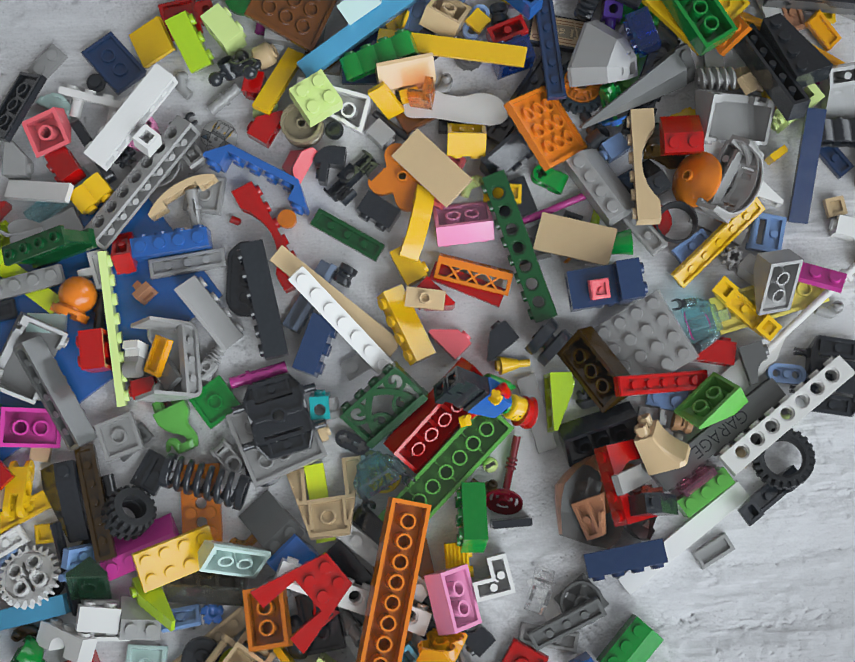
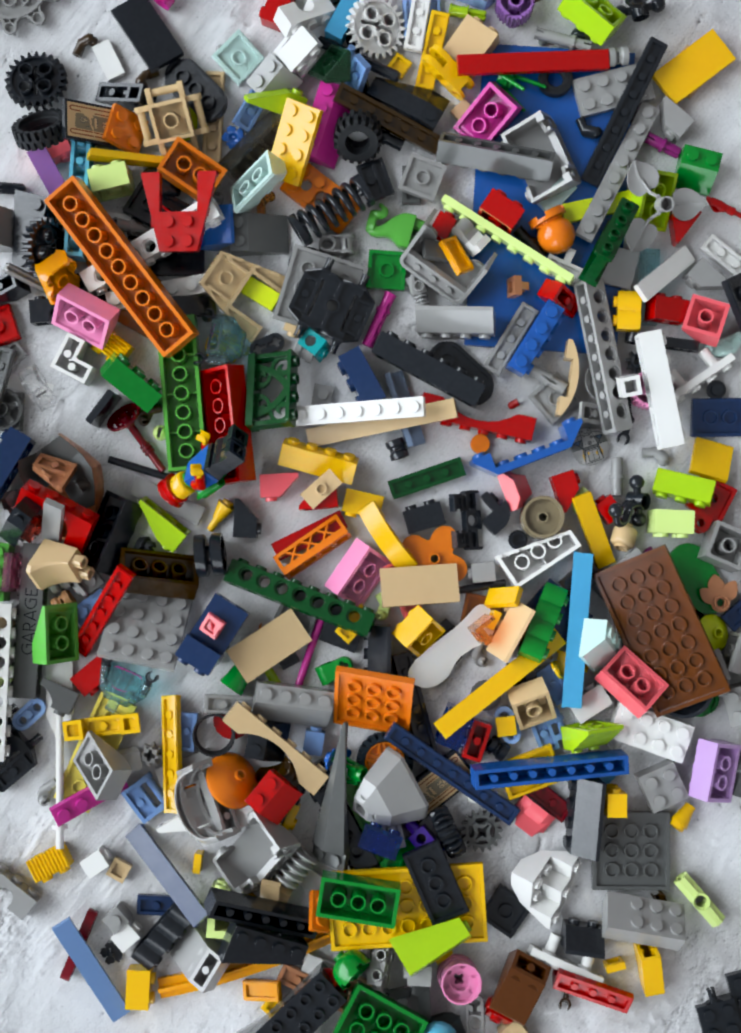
camera: 135 degrees right, 5 degrees up
(315, 98) = (550, 542): yellowish green brick -> none
(531, 456) = (136, 467): none -> black bar
(595, 133) = (332, 736): black pin -> none

